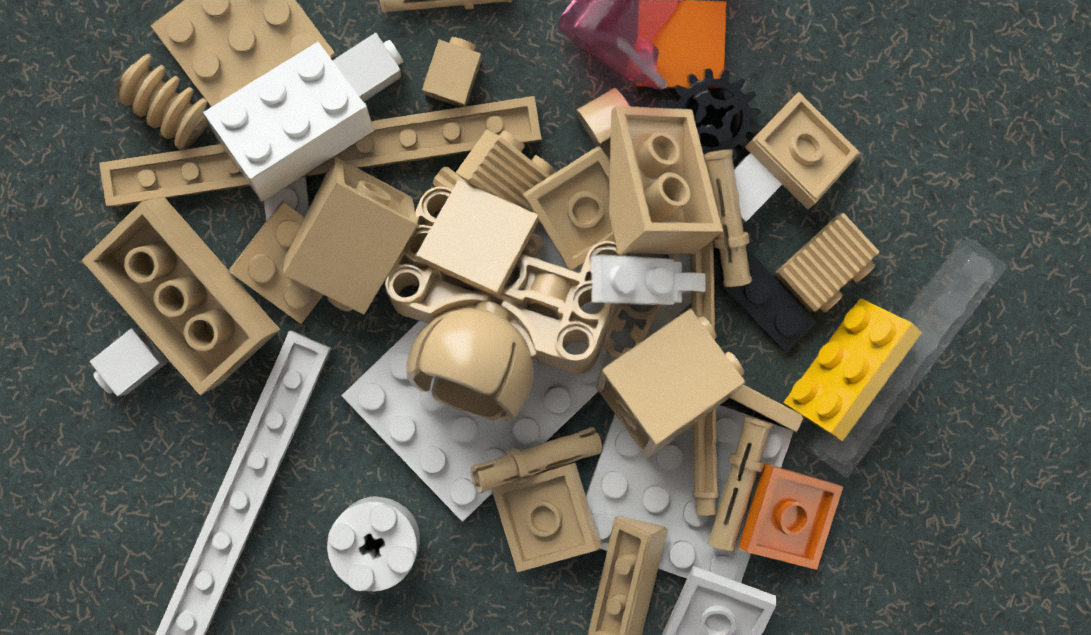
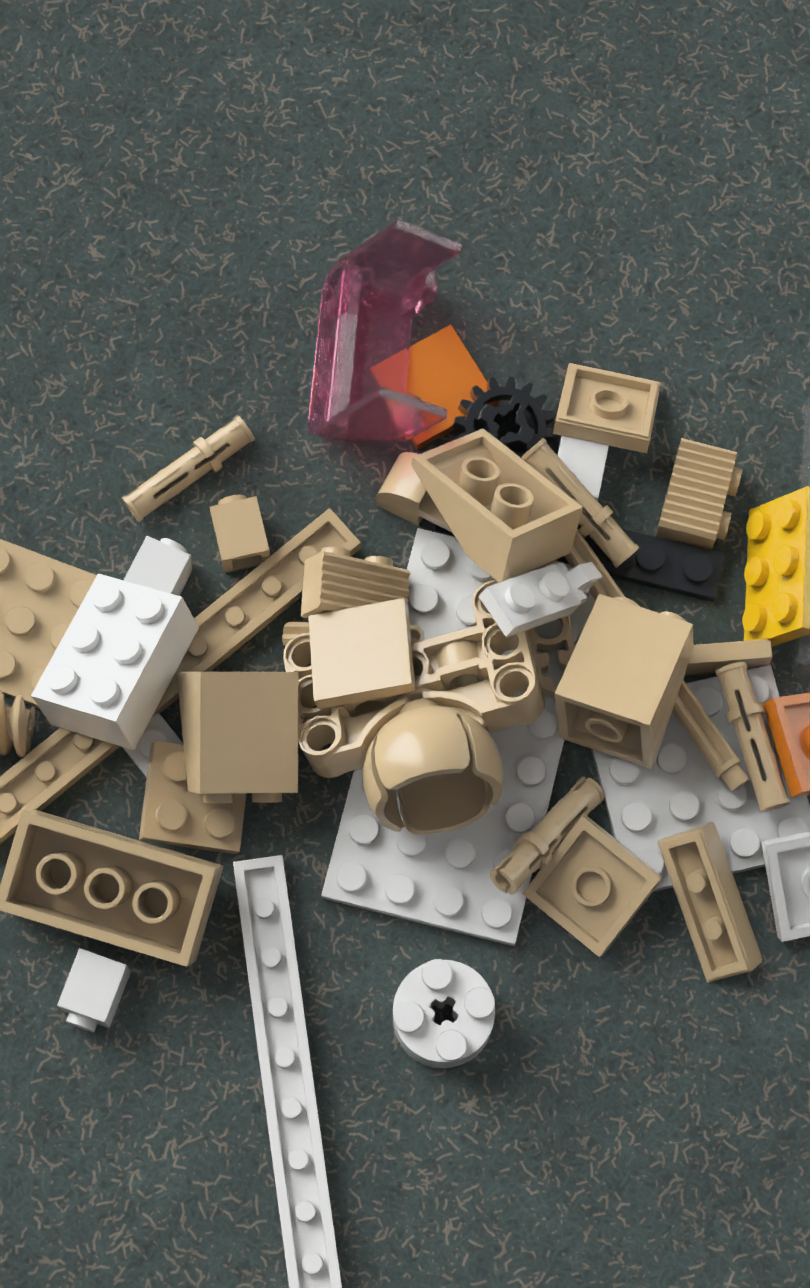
camera: 35 degrees left, 15 degrees down
(575, 206) = (434, 575): tan plate -> none

